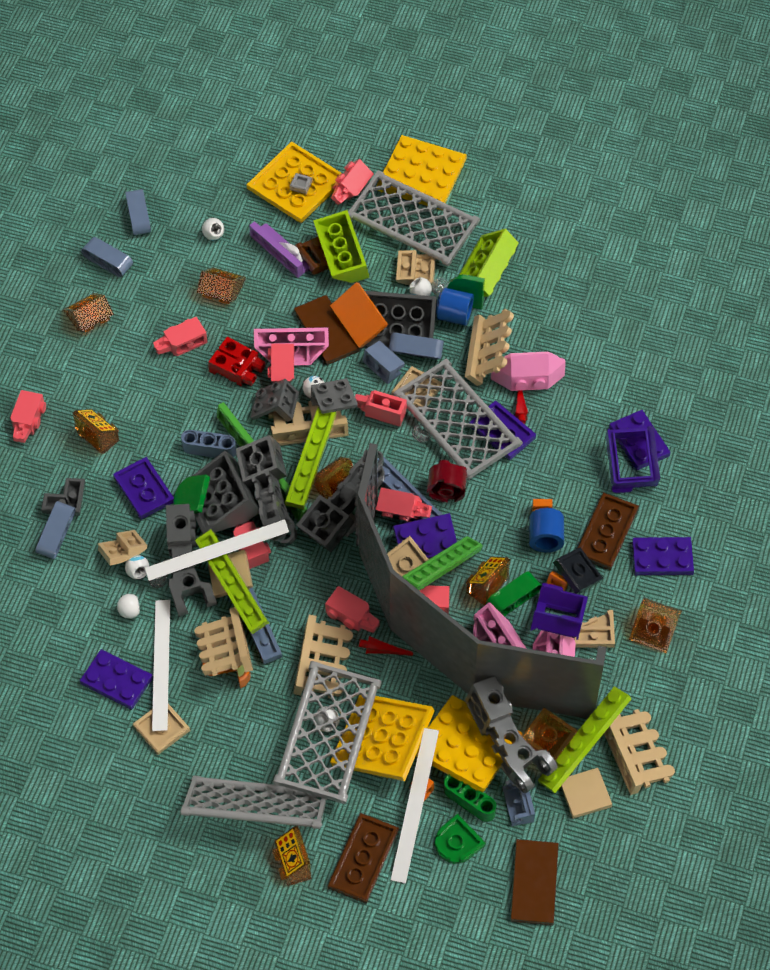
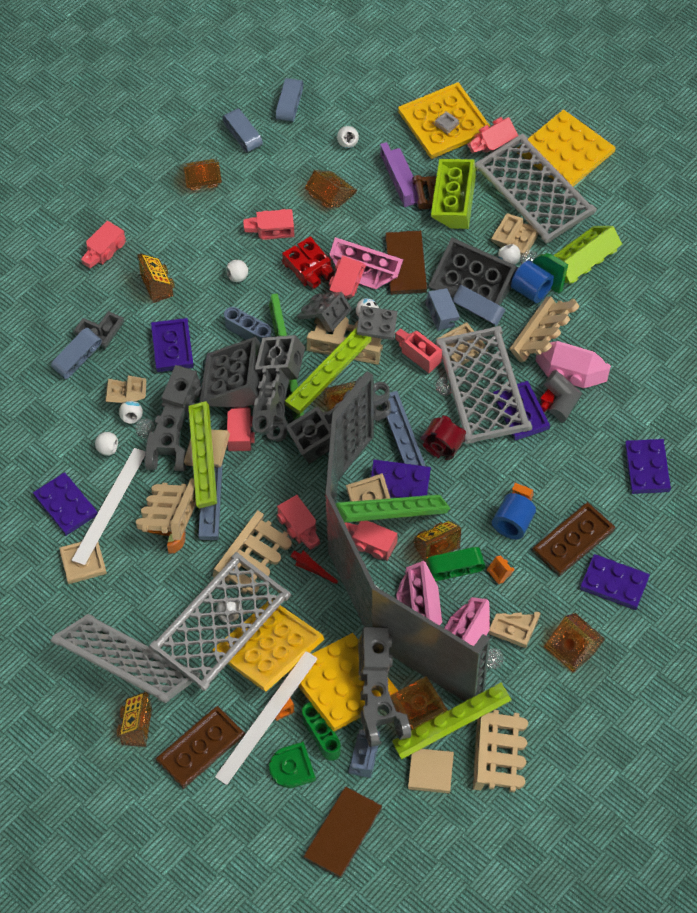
camera: 25 degrees right, 0 degrees up
(171, 394) = (237, 270): none -> white piece
(192, 492) = (209, 364): green tile -> none
(216, 550) = (202, 421): white sticker -> none
(293, 250) = (409, 179): white bar -> none
(359, 315) = (438, 258): orange tile -> none
(401, 504) = (391, 443): coral hinge -> none
(536, 399) = (566, 395): none -> dark grey brick
(555, 598) = (492, 582): dark purple piece -> none
(578, 570) = (524, 564): black tile -> none
(624, 485) = (613, 502): dark purple piece -> none

